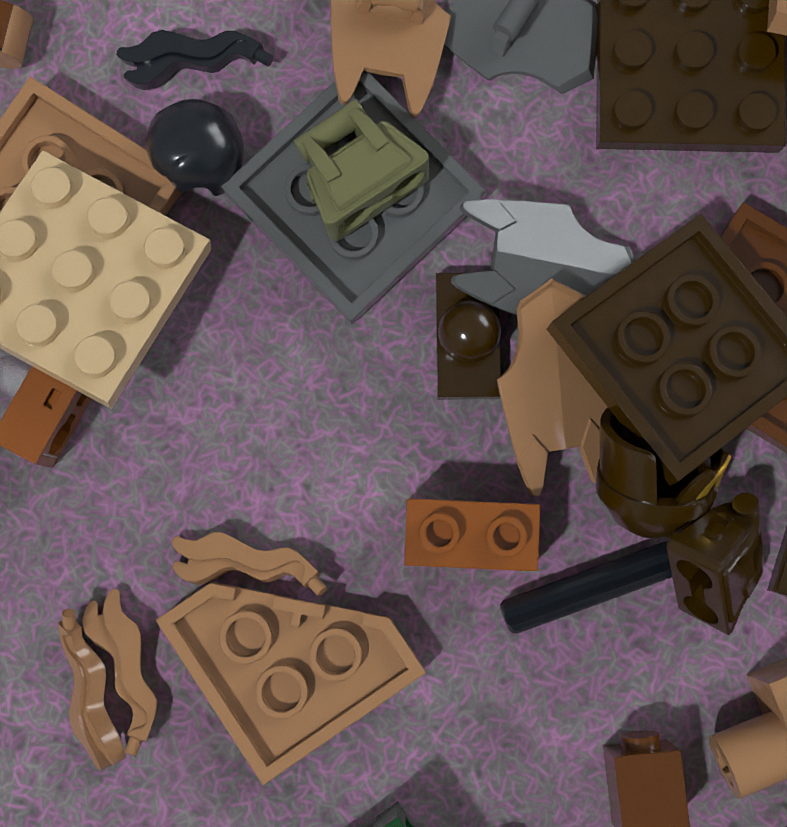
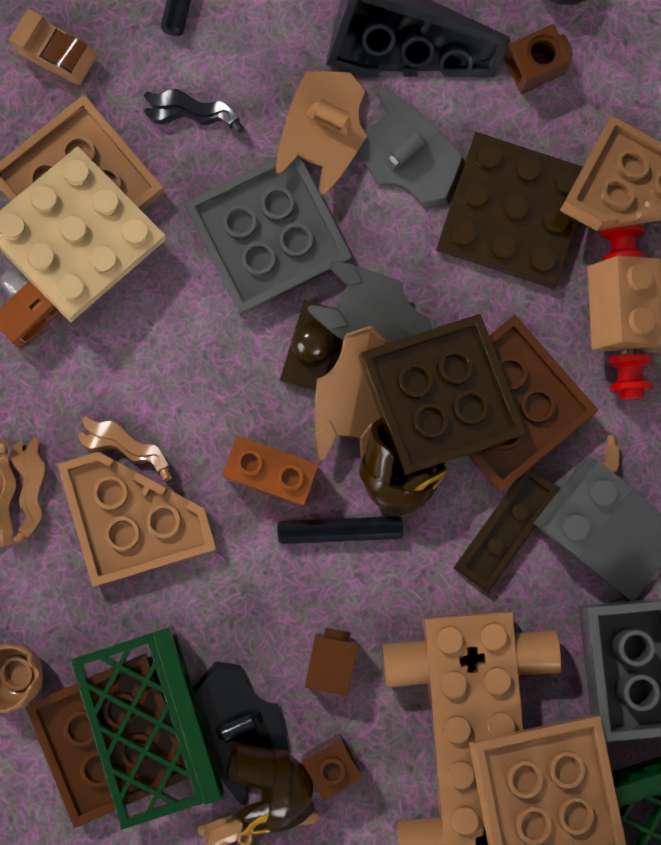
camera: 15 degrees right, 0 degrees up
(195, 145) = (175, 171): black hair -> none
(362, 174) = (273, 223): olive piece -> none
(718, 562) = (422, 536): dark brown piece -> none

